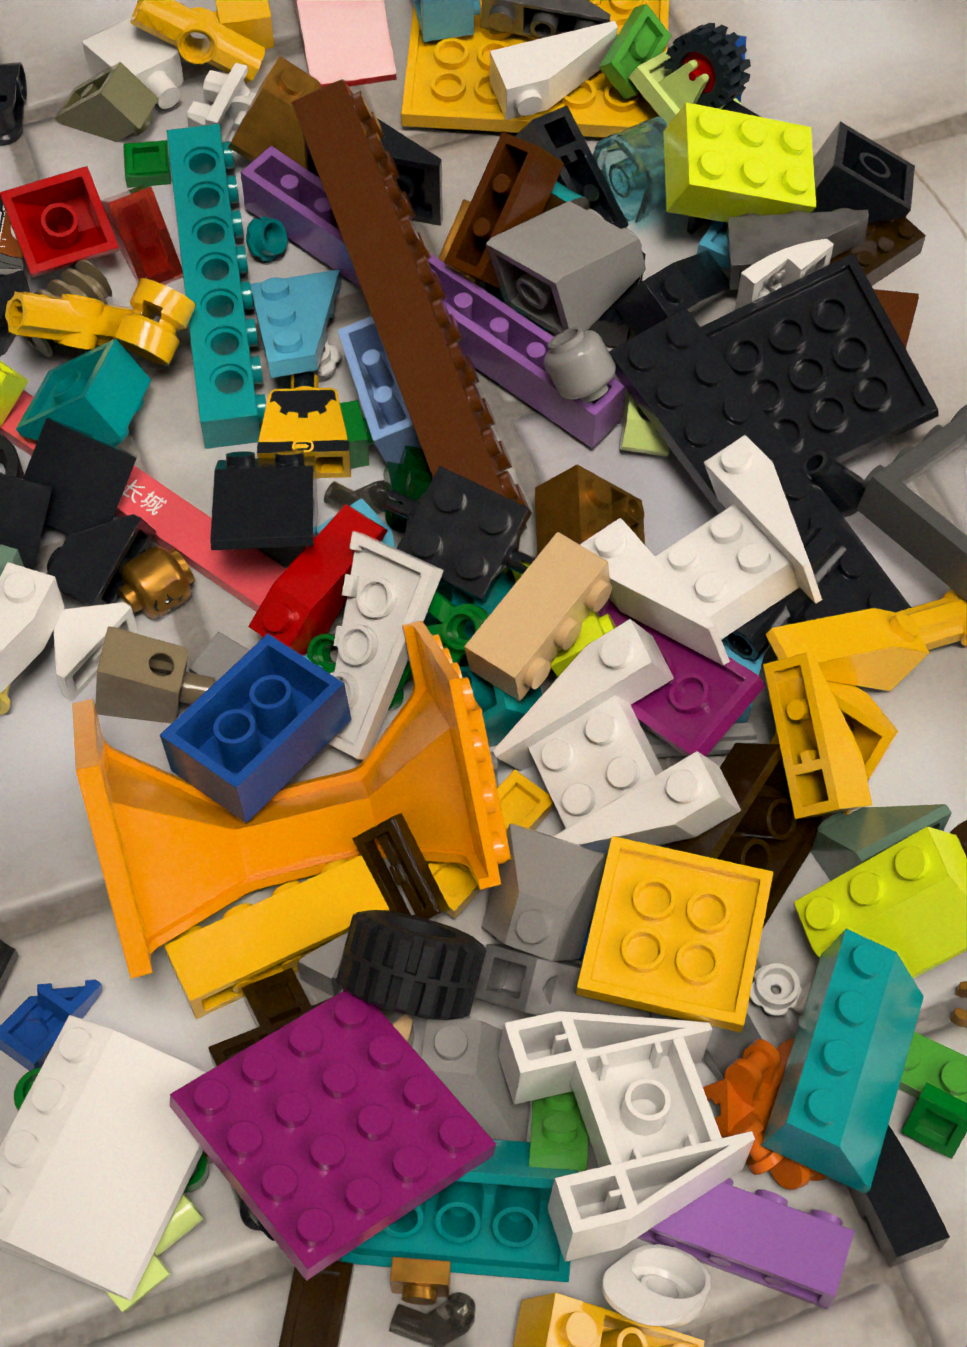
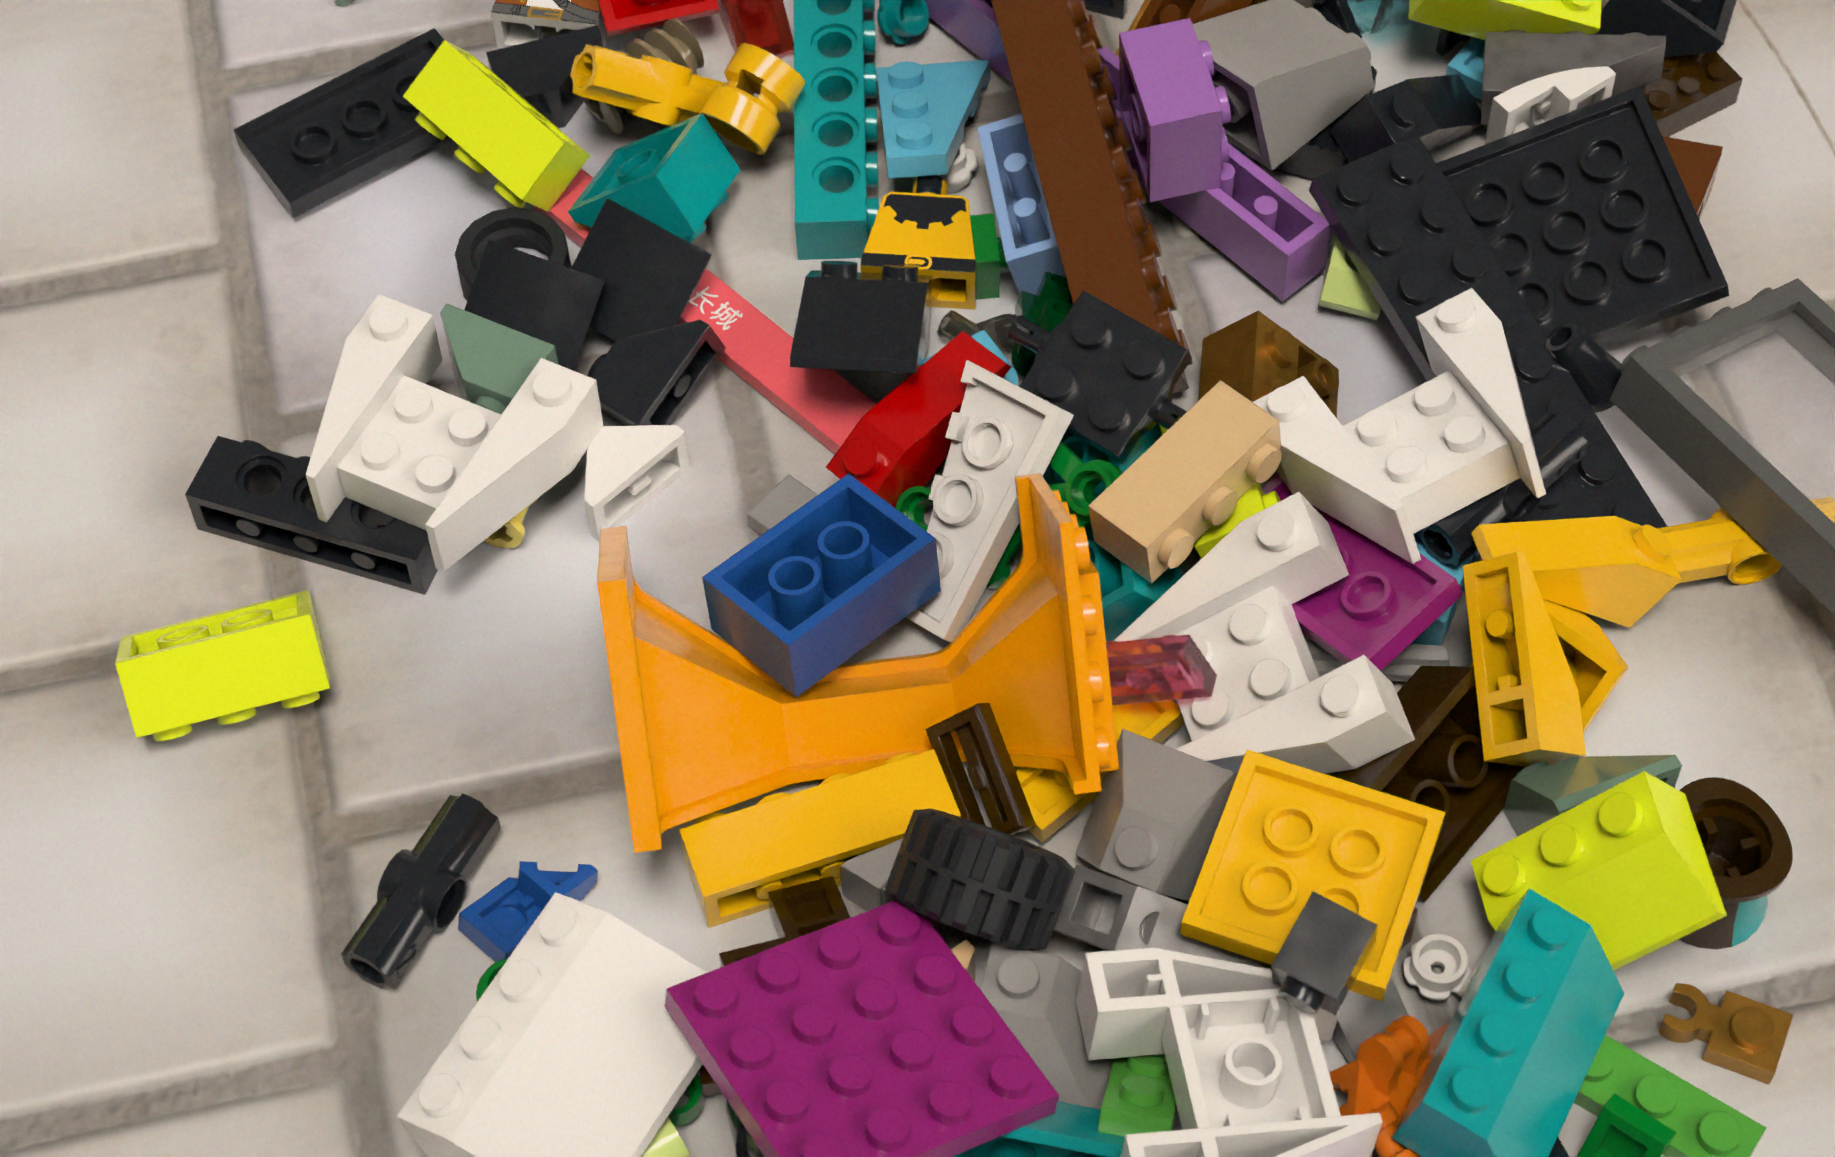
camera: 10 degrees right, 5 degrees down
(145, 678) = (689, 515): dark tan torso -> none
(156, 582) = (719, 408): pearl gold head -> none
(492, 305) = (1172, 109): none -> medium lavender brick
(534, 773) = (1158, 670): none -> clear pink plate
(579, 364) = (1273, 189): light grey head -> none
(693, 1008) = (1322, 955): none -> black brick

